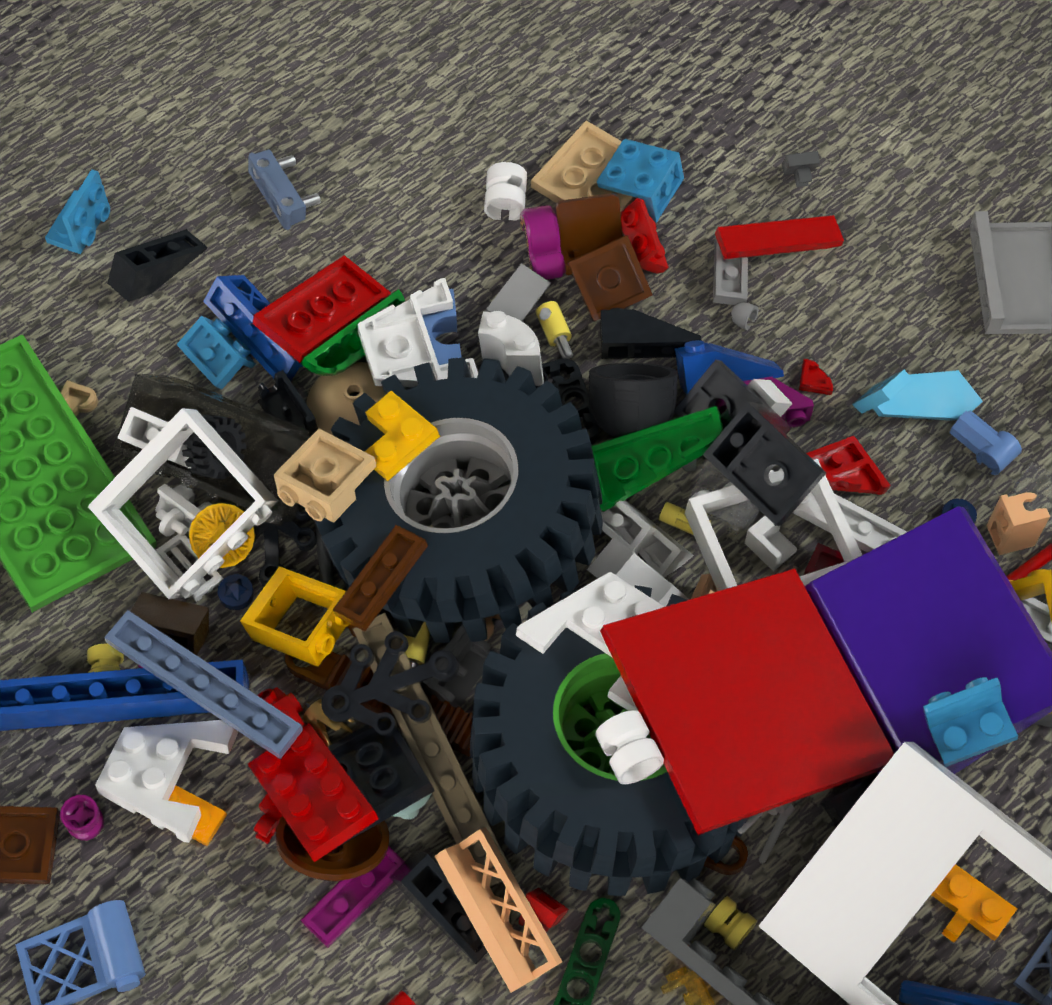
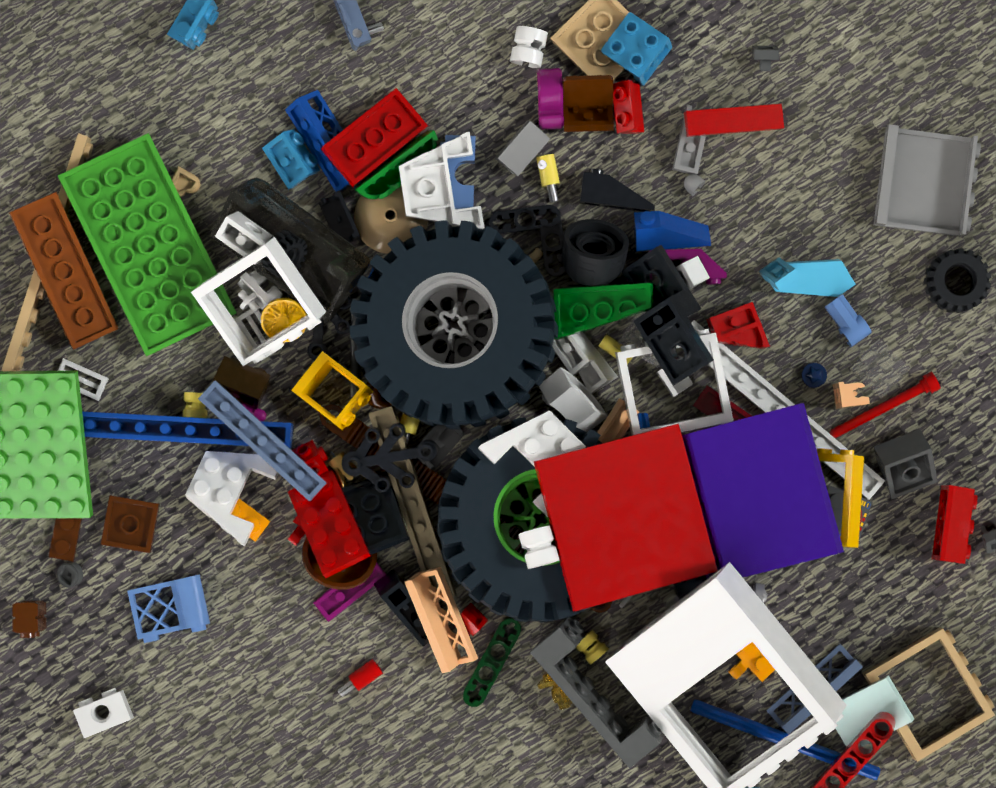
camera: 10 degrees right, 25 degrees up
(79, 810) = (172, 510): magenta wheel -> none
(151, 264) = (251, 72): black slope -> none
(235, 592) = (289, 358): dark blue tile -> none
(323, 476) = (360, 309): tan plate -> none
(380, 577) = (391, 395): reddish brown tile -> none
(404, 437) = (422, 281): yellow plate -> none
(510, 343) = (513, 194): white brick -> none
(609, 277) = (595, 143): reddish brown plate -> none
(814, 379) = (735, 246): red tile -> none
(969, 721) = (768, 563): dark azure bracket -> none

